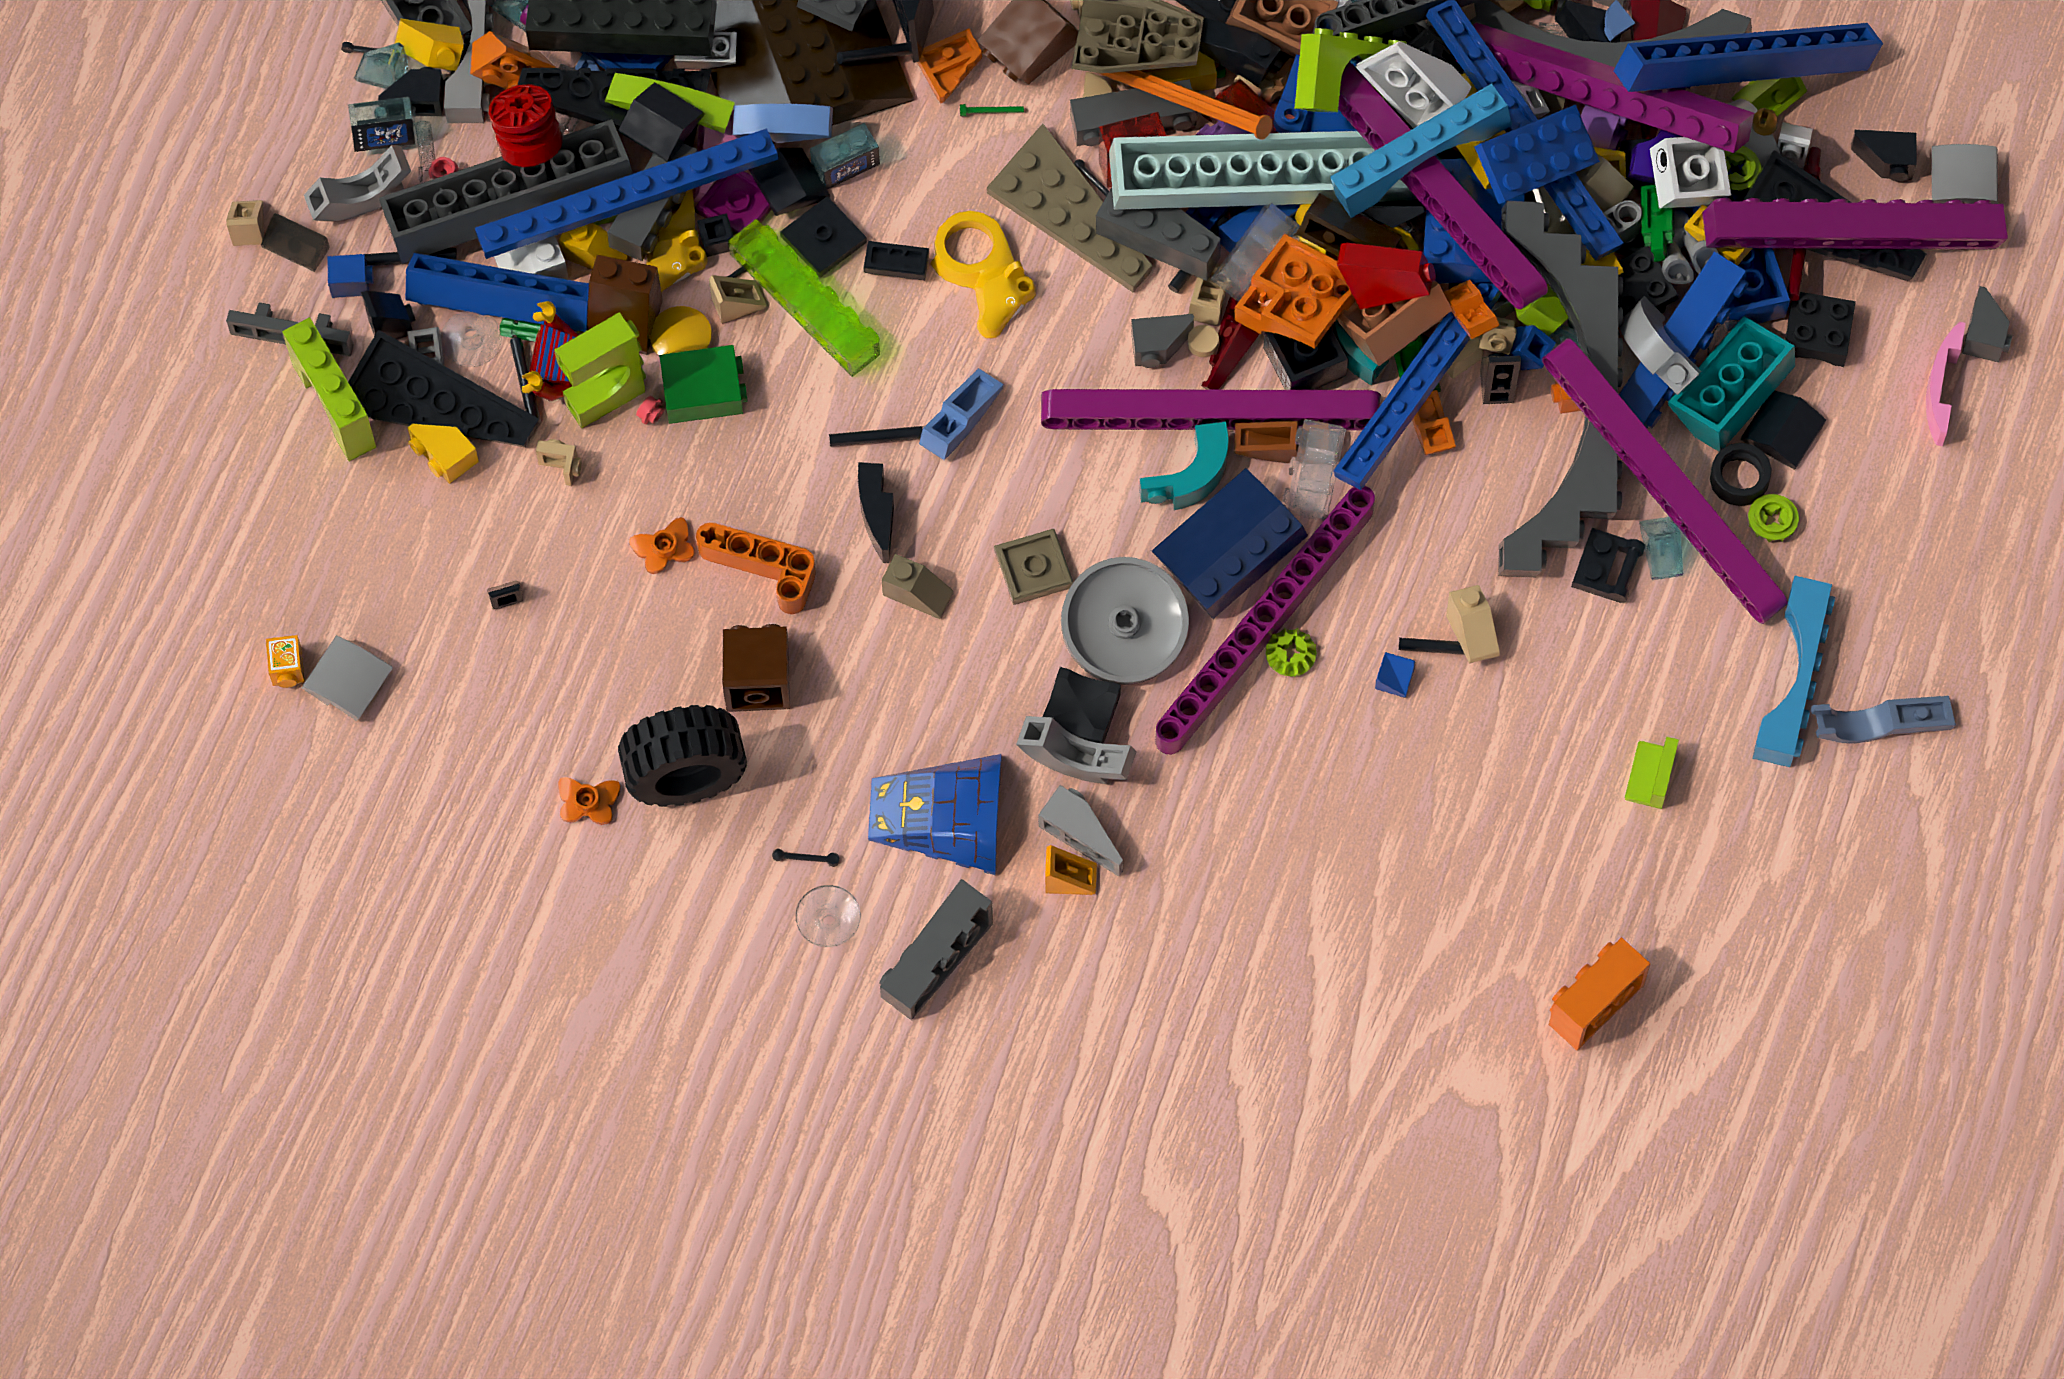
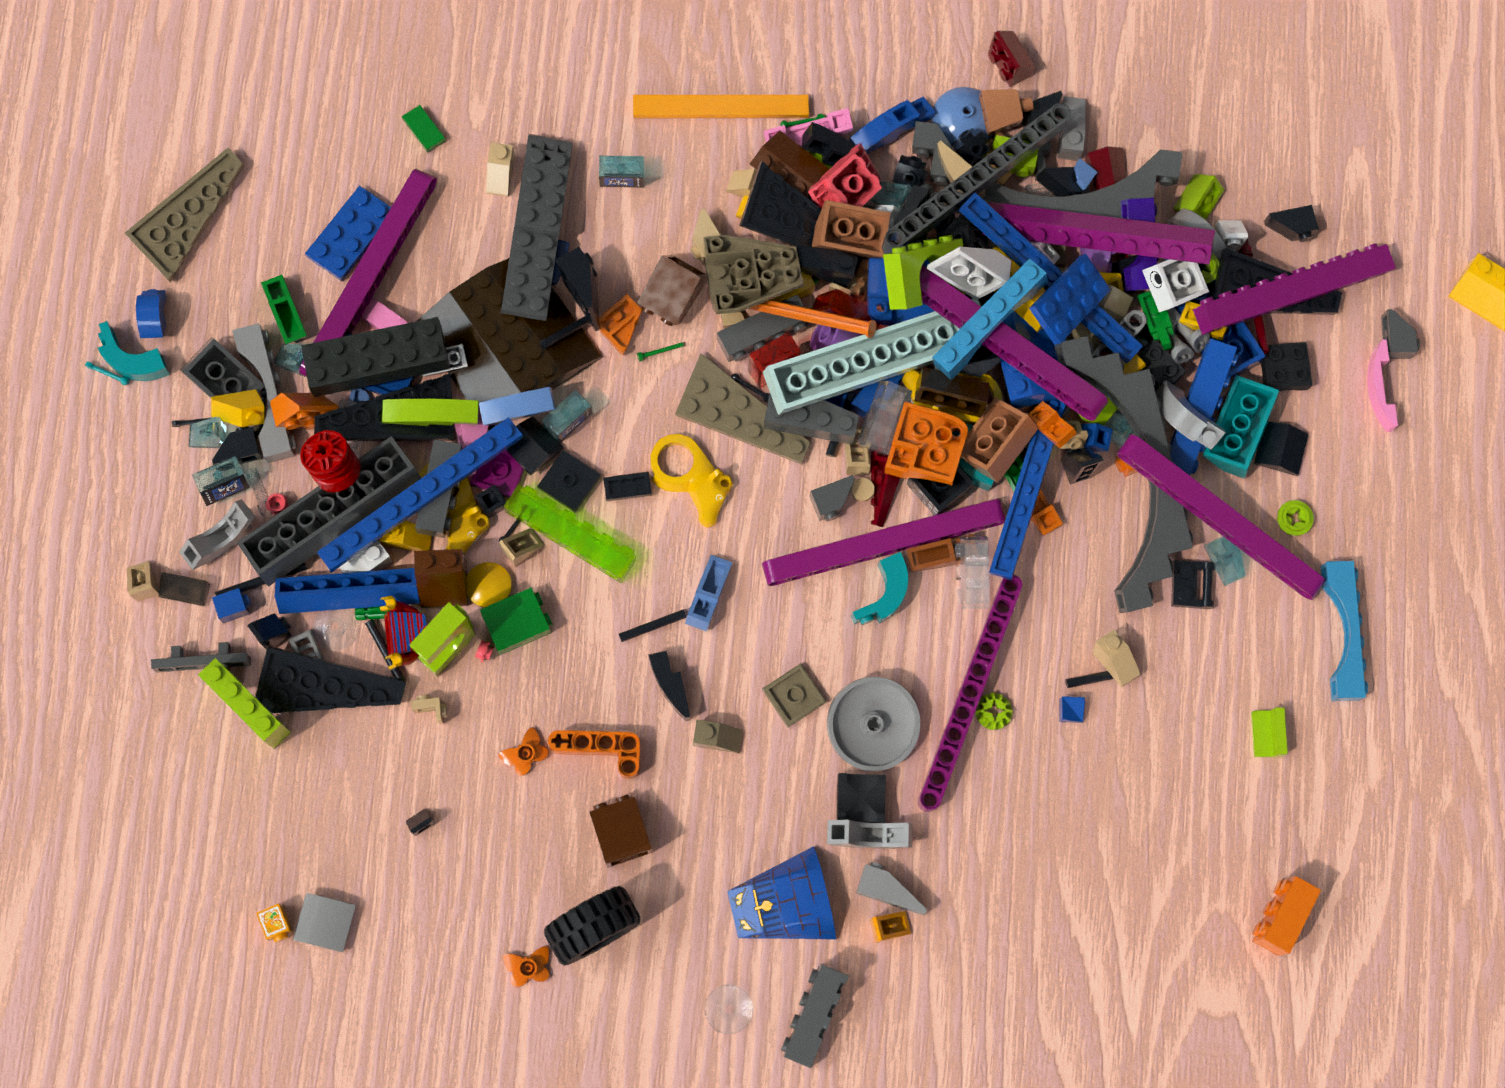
camera: 25 degrees left, 10 degrees up
(445, 448) = (343, 722): yellow slope -> none
(660, 121) = (429, 431): black slope -> none
(832, 858) = (717, 961): black hinge -> none
(1230, 542) = (928, 642): dark blue slope -> none
(1384, 274) = (988, 417): red slope -> none
(1741, 452) = (1278, 483): black tyre -> none
(1747, 57) = (1190, 184): blue brick -> none
(1770, 125) = (1217, 225): pearl gold hinge -> none
(1888, 718) = (1415, 649): sand blue piece -> none
(1964, 173) = (1350, 226): light grey slope -> none

